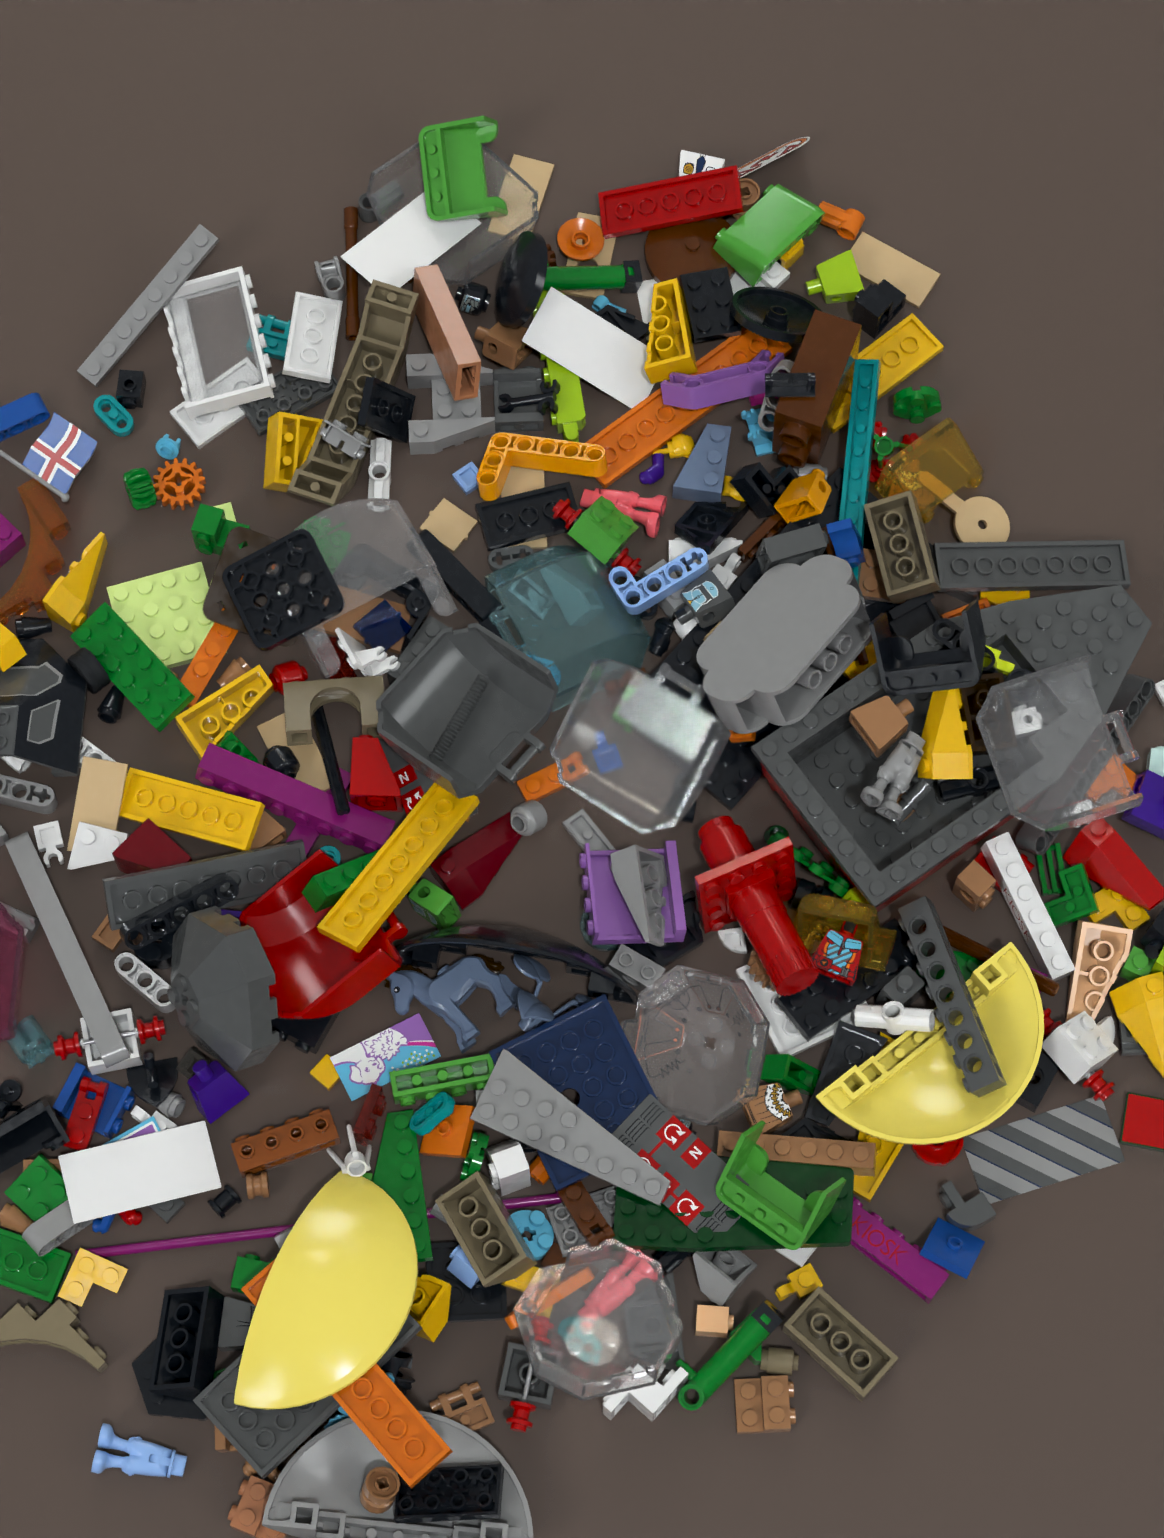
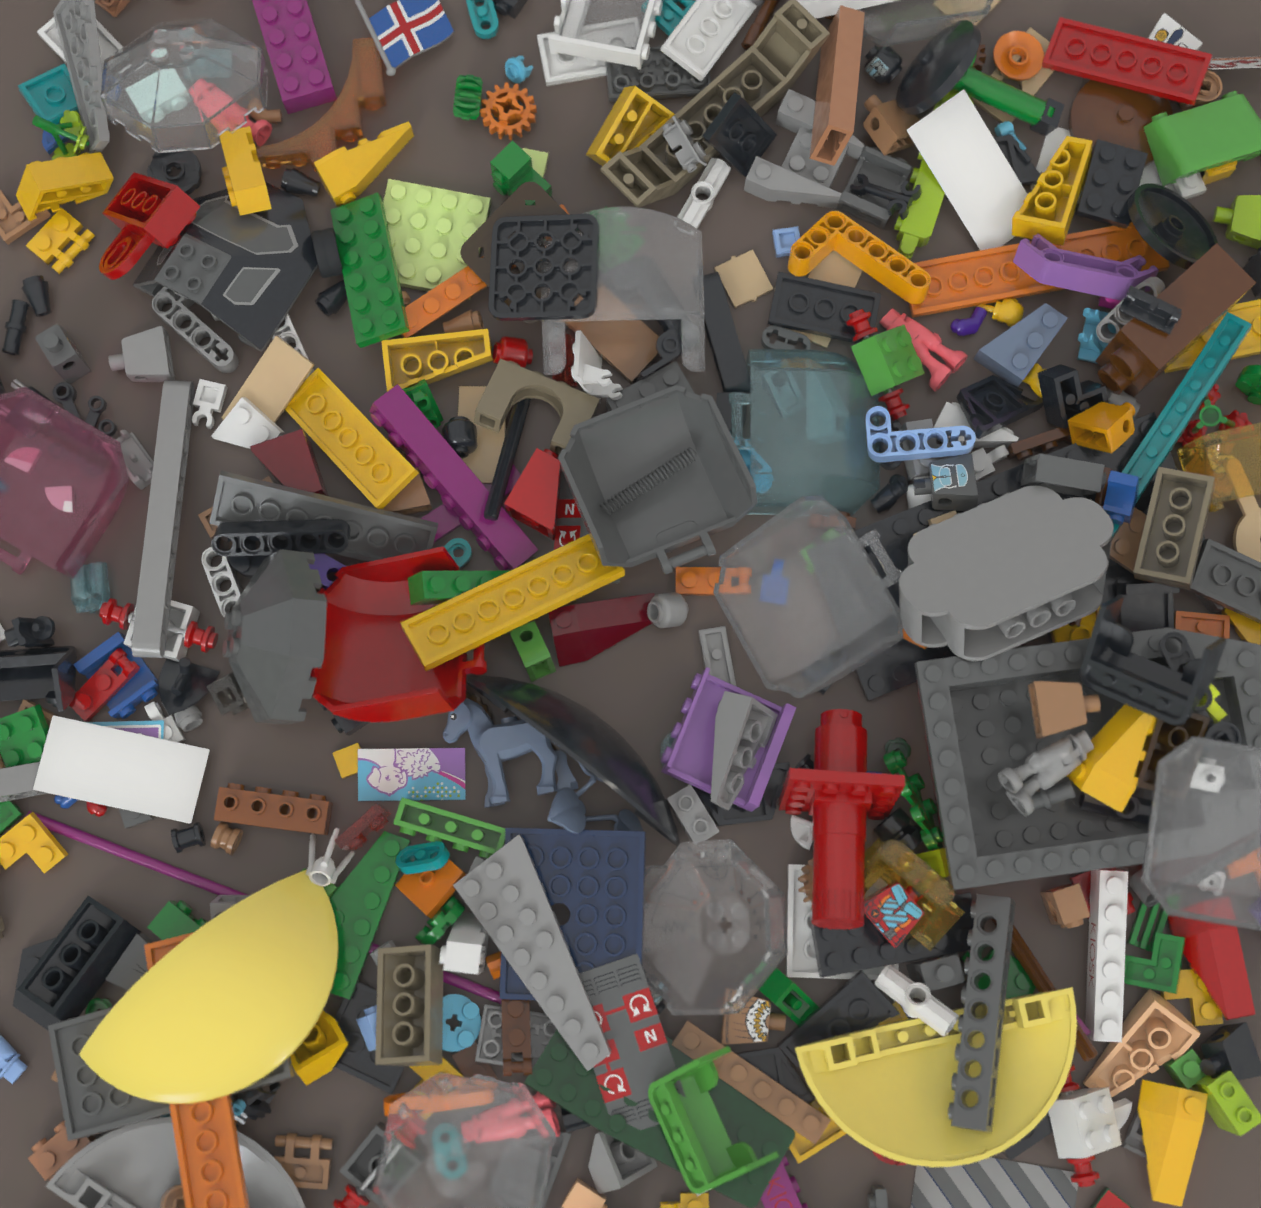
camera: 25 degrees right, 10 degrees up
(214, 1089) = (233, 726): dark purple torso -> none
(382, 626) = (626, 349): clear blue piece -> none

